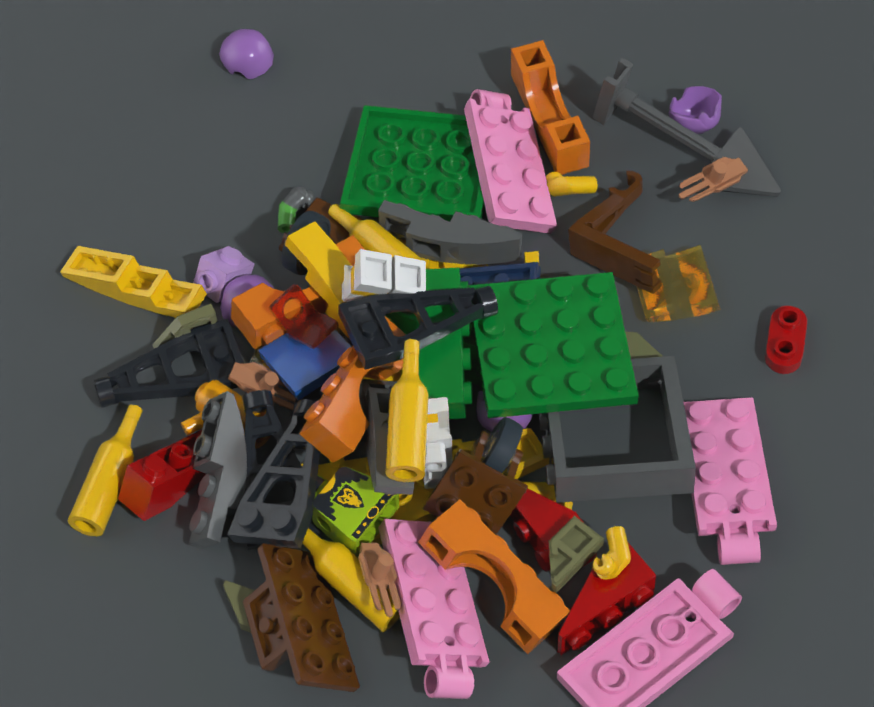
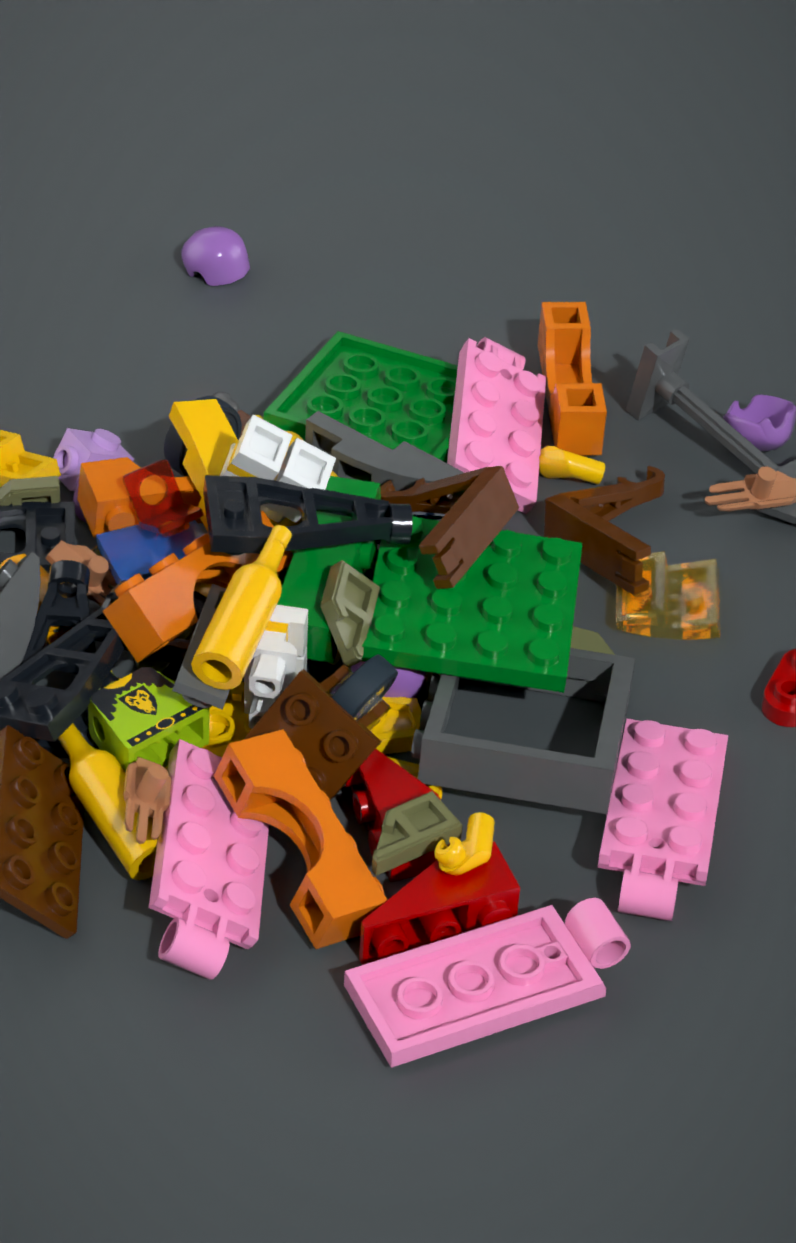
camera: 10 degrees right, 15 degrees down
(471, 383) = (349, 609): none -> olive tile
(541, 269) = (475, 512): none -> reddish brown hinge

